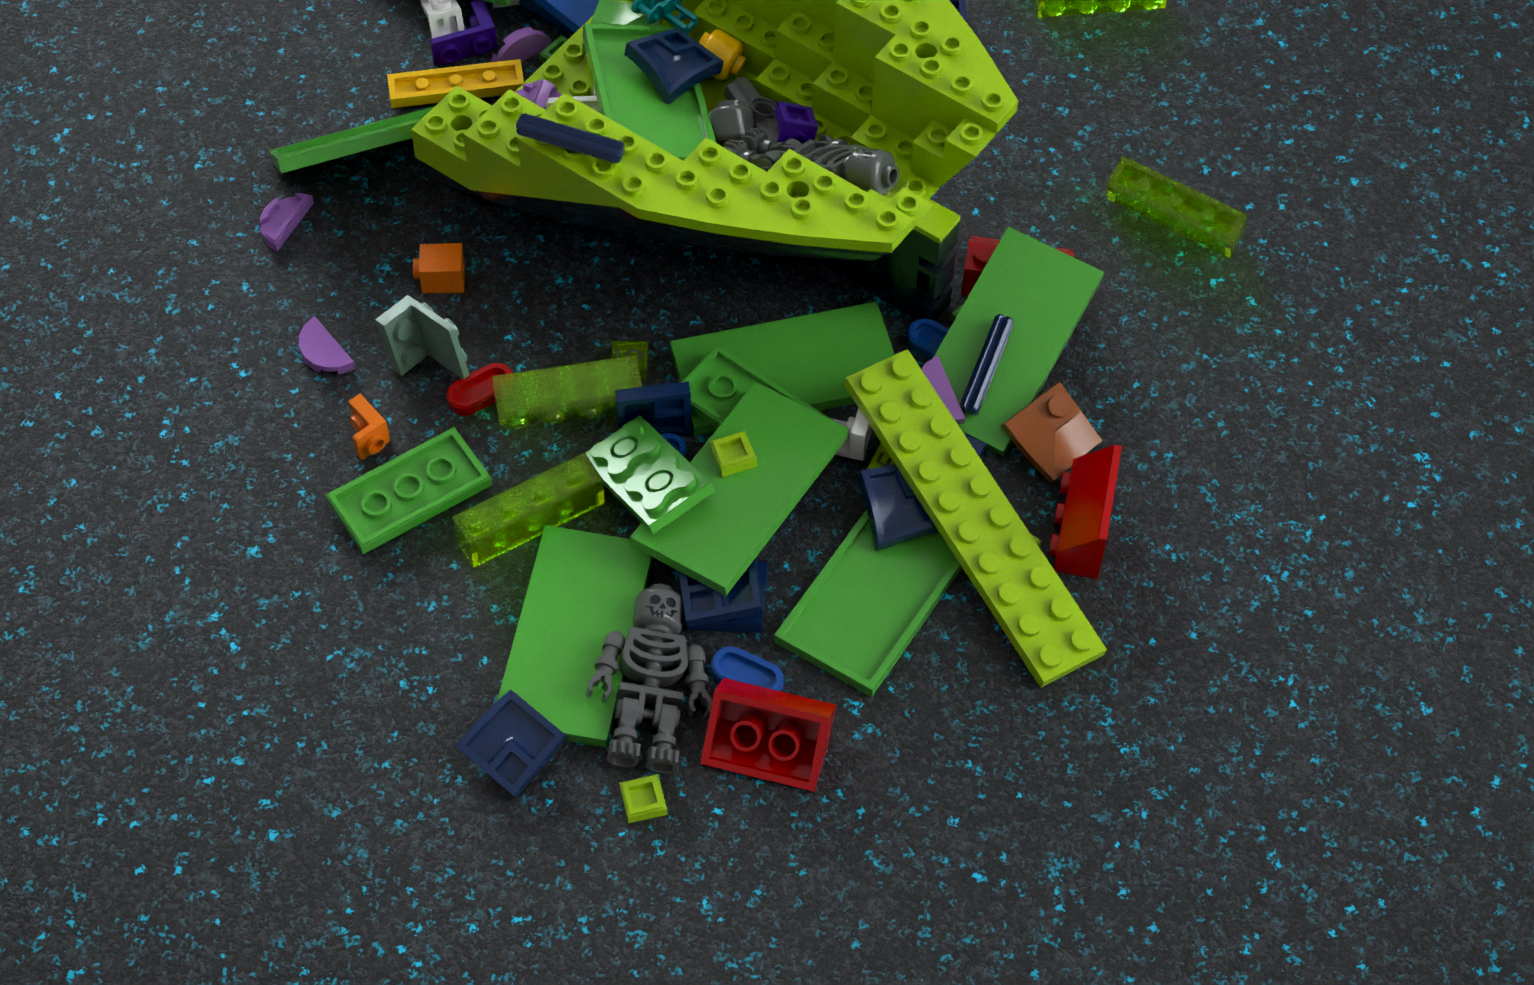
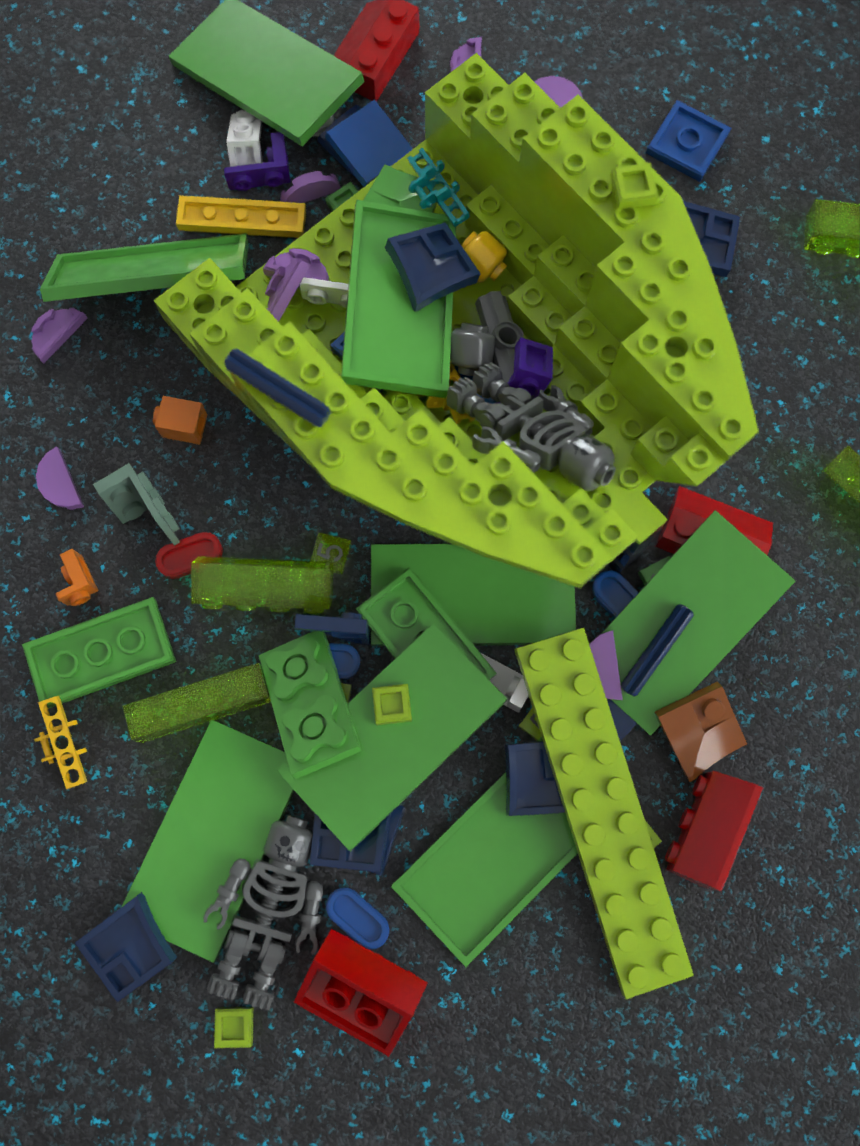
camera: 15 degrees right, 20 degrees up
(398, 592) = (53, 734): none -> yellow piece

